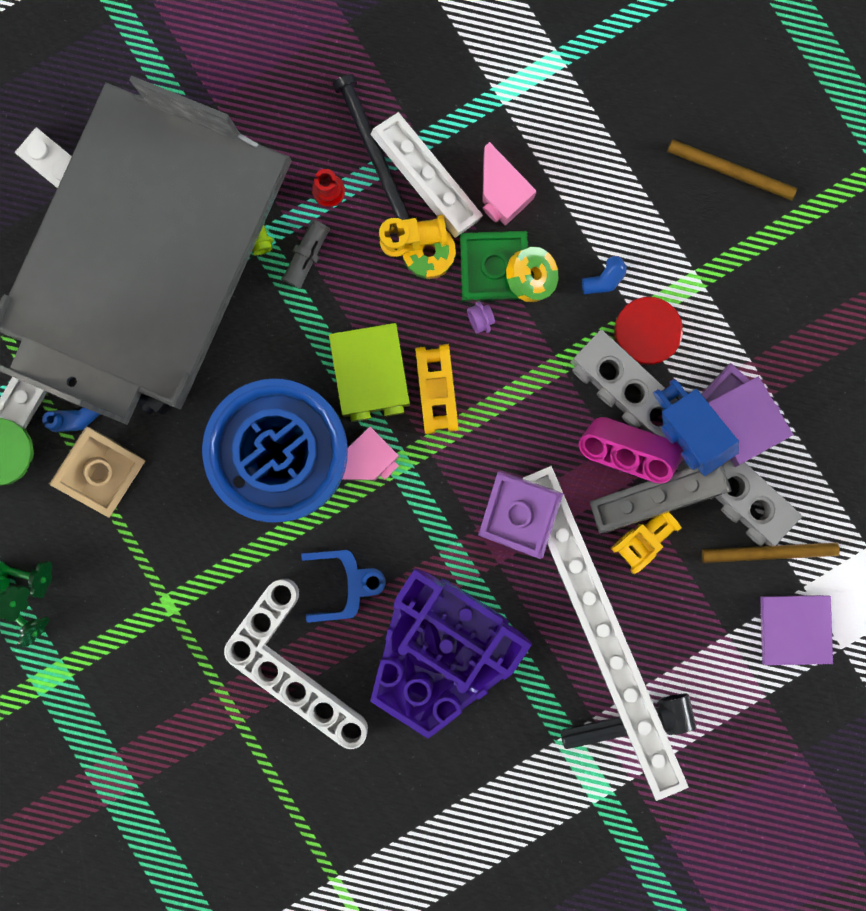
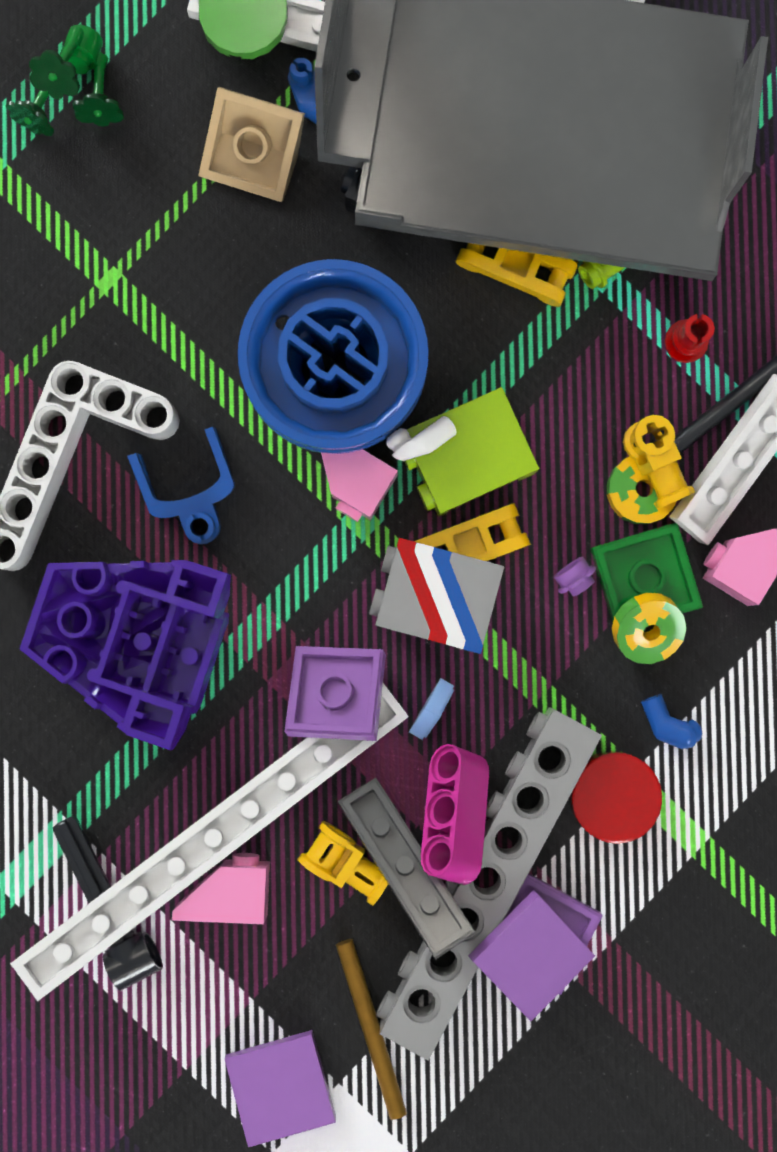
camera: 75 degrees right, 0 degrees up
(245, 298) = (519, 270): none -> yellow plate
(305, 254) = (597, 333): dark grey pin -> none
(356, 403) = (424, 442): none -> white arm
(468, 422) = (437, 595): none -> panel
(550, 447) = (432, 709): none -> light blue tile
(646, 630) = (230, 894): none -> bright pink slope
(696, 428) = (504, 892): blue brick -> none

